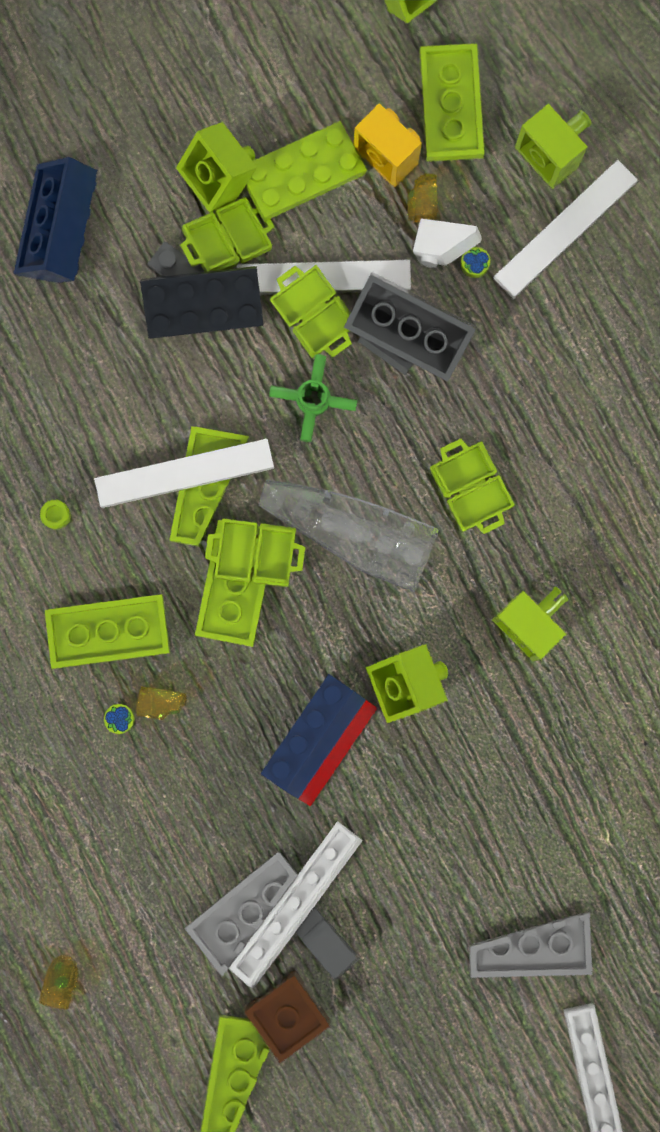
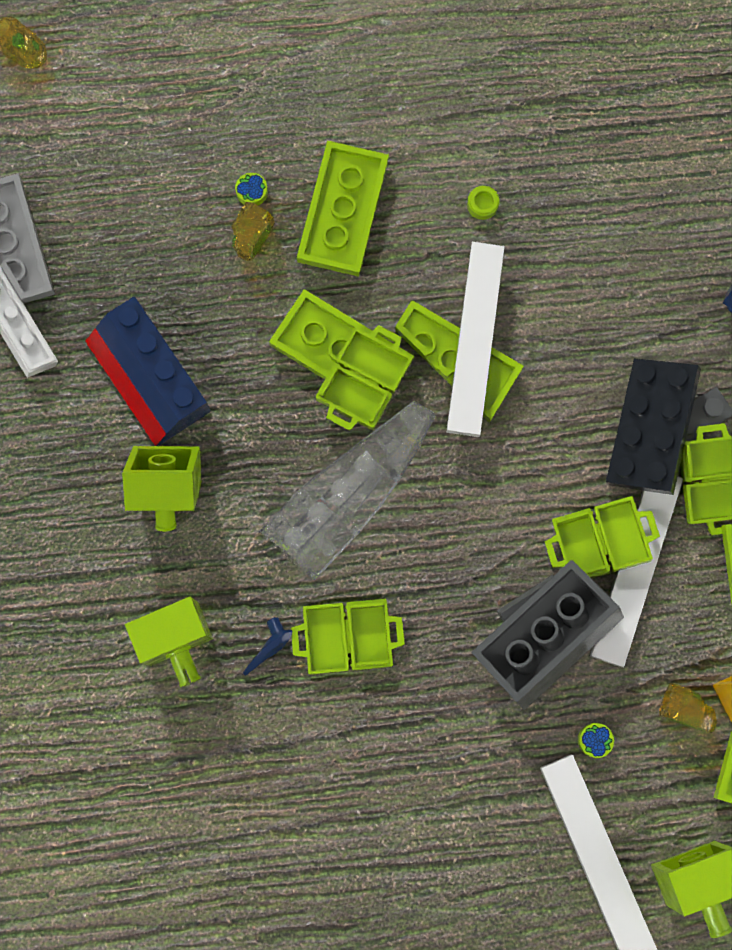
camera: 105 degrees right, 5 degrees down
(305, 390) = (501, 515): bright green bar -> none
(443, 241) = (630, 710): white slope -> none
(497, 540) = (273, 645): none -> dark blue bar

